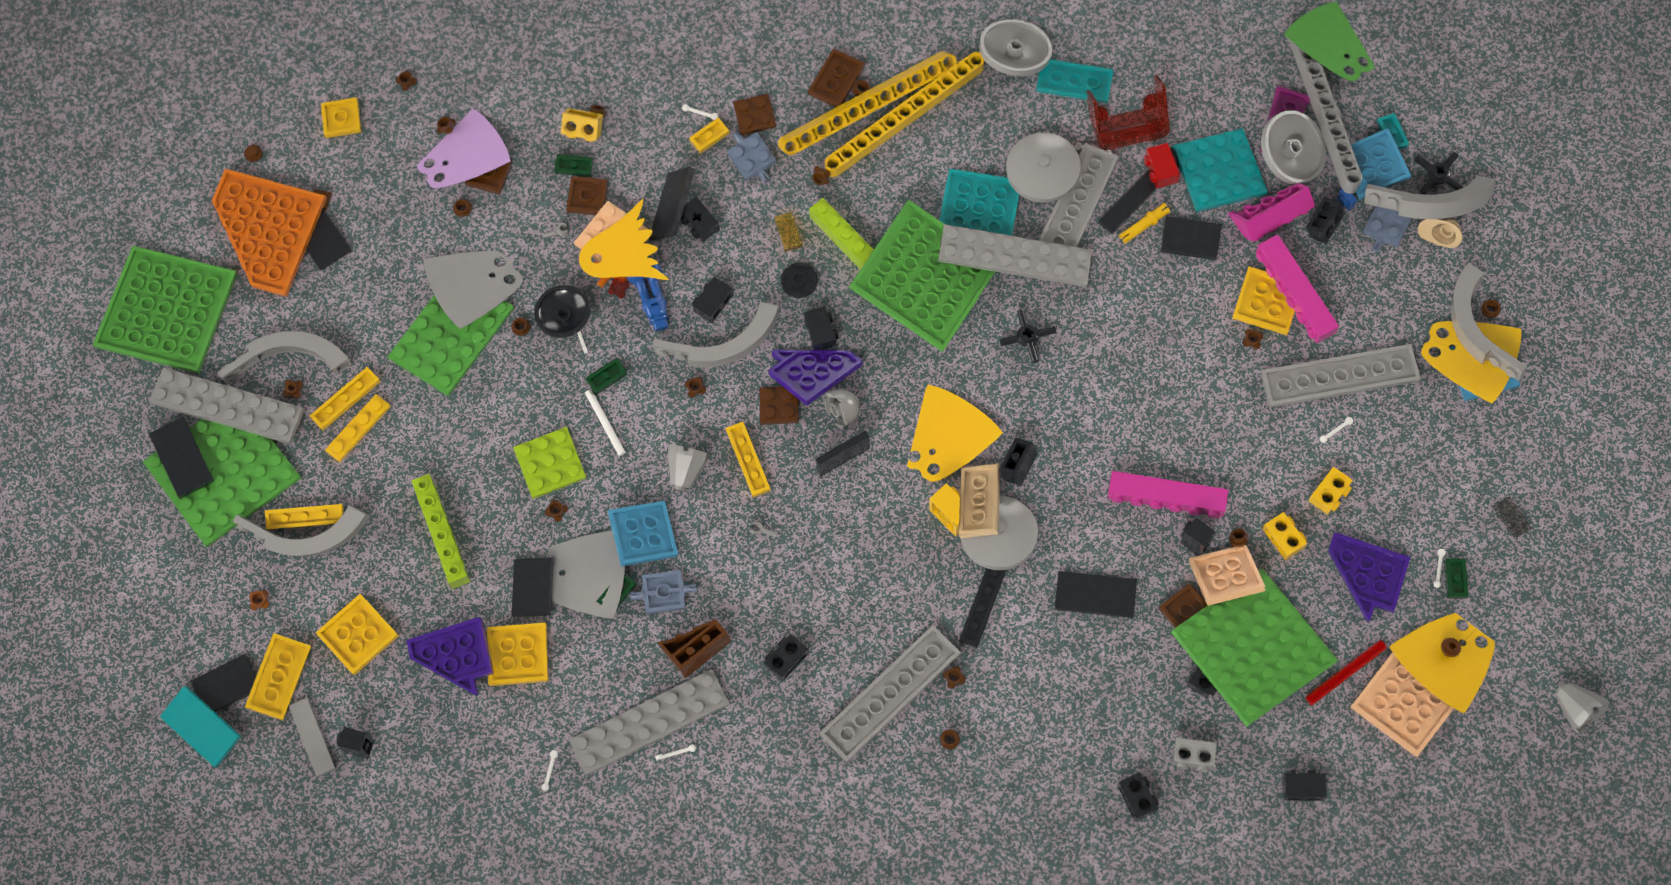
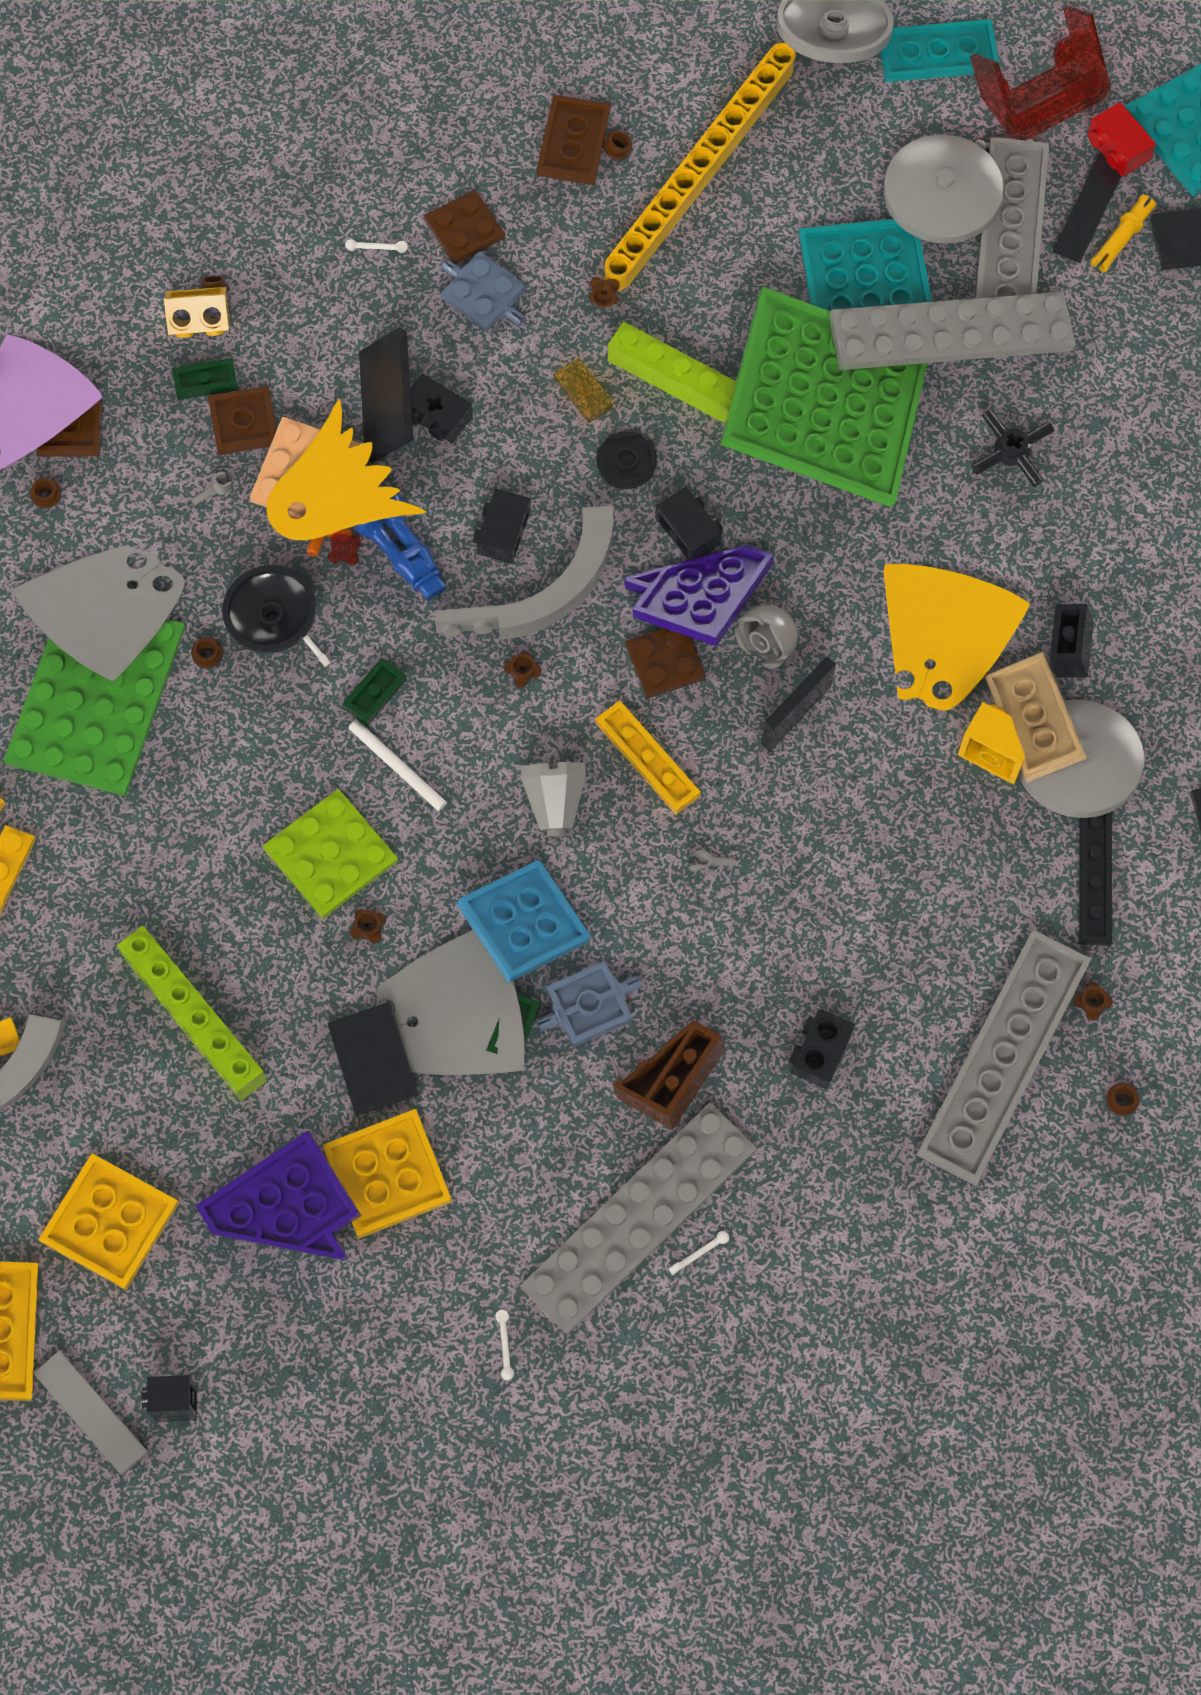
camera: 25 degrees left, 0 degrees up
(709, 135) = (405, 276): yellow plate -> none
(858, 103) = (625, 166): yellow beam -> none

